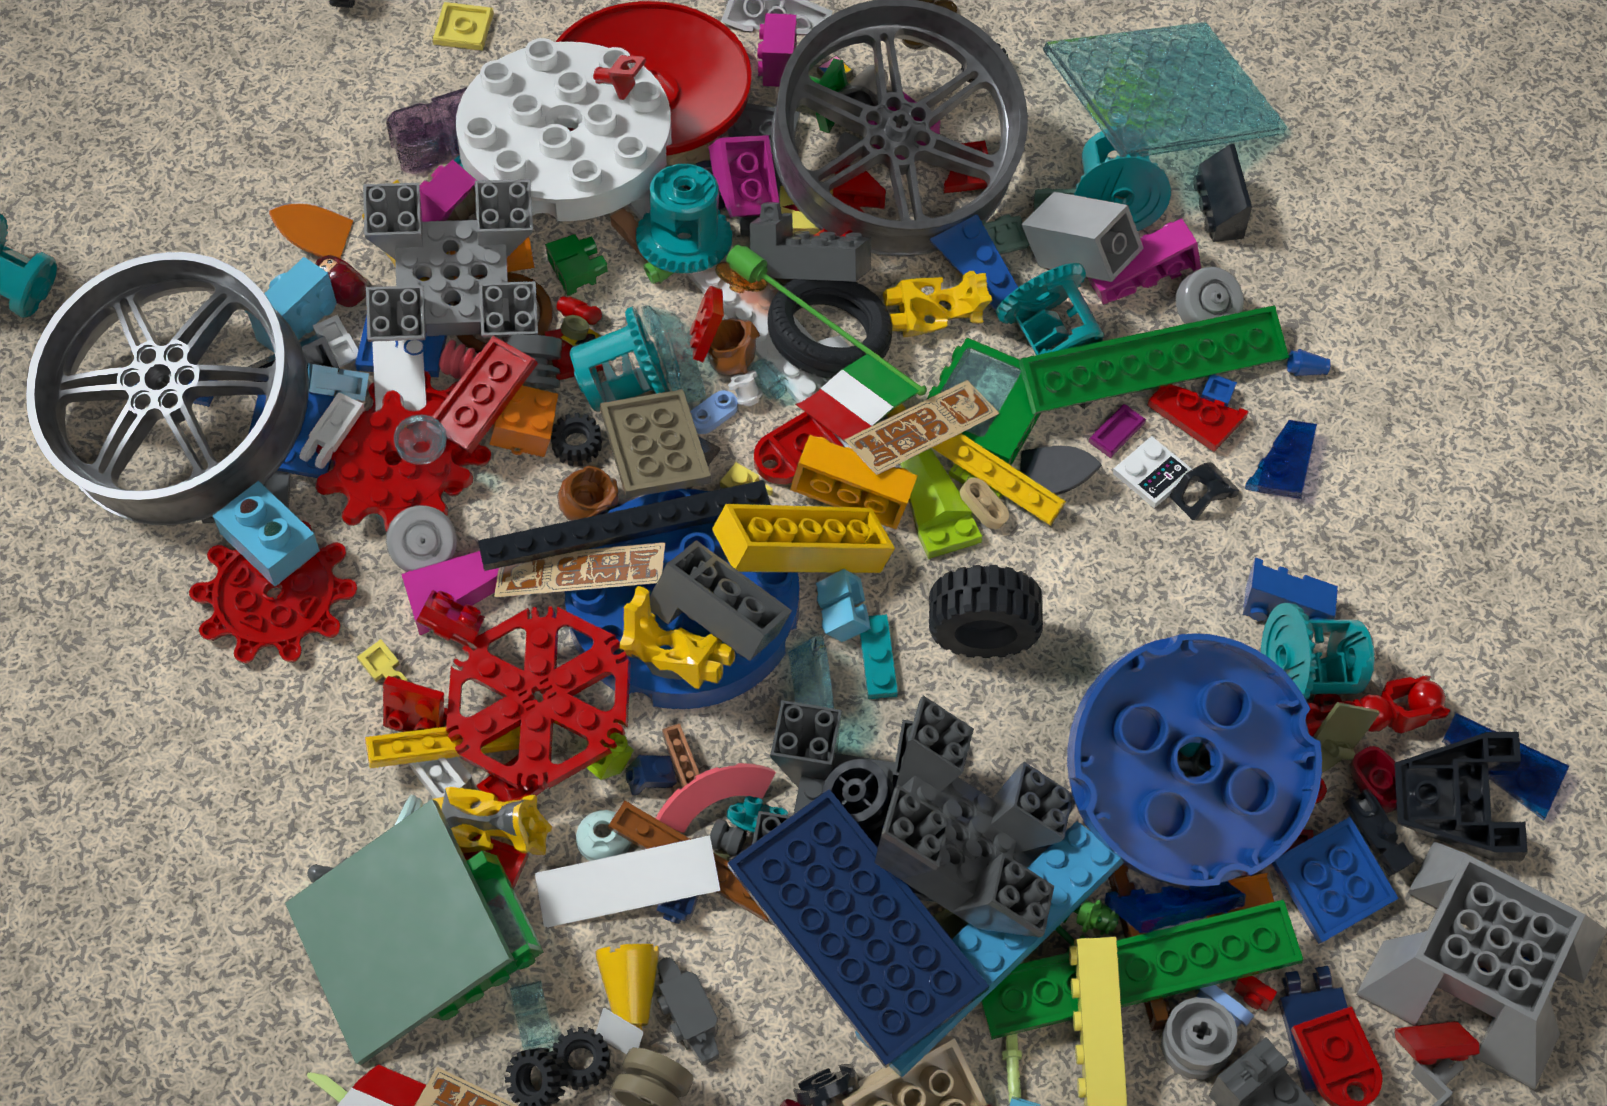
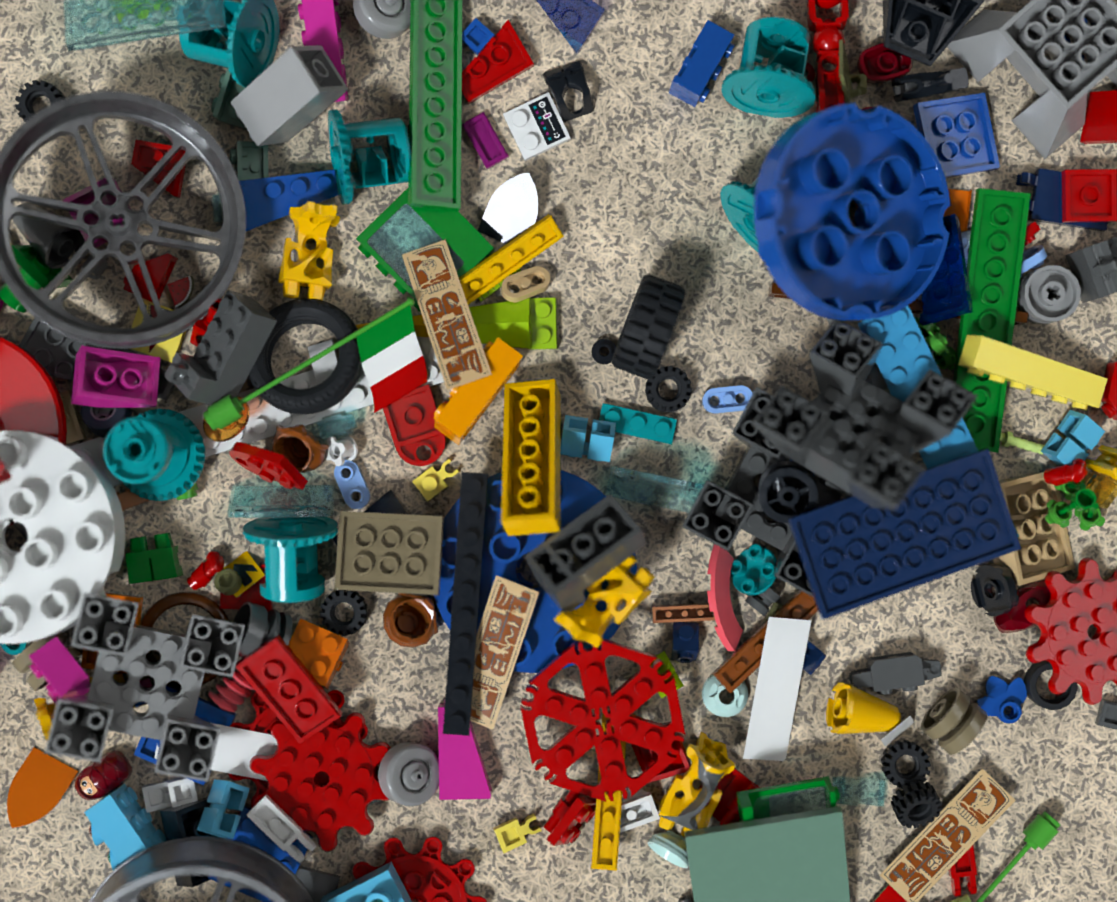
camera: 70 degrees left, 30 degrees up
(418, 429) = (320, 769): clear light blue piece -> none
(450, 618) = (504, 771): red plate -> none
(927, 657) = (679, 400): none -> black tyre

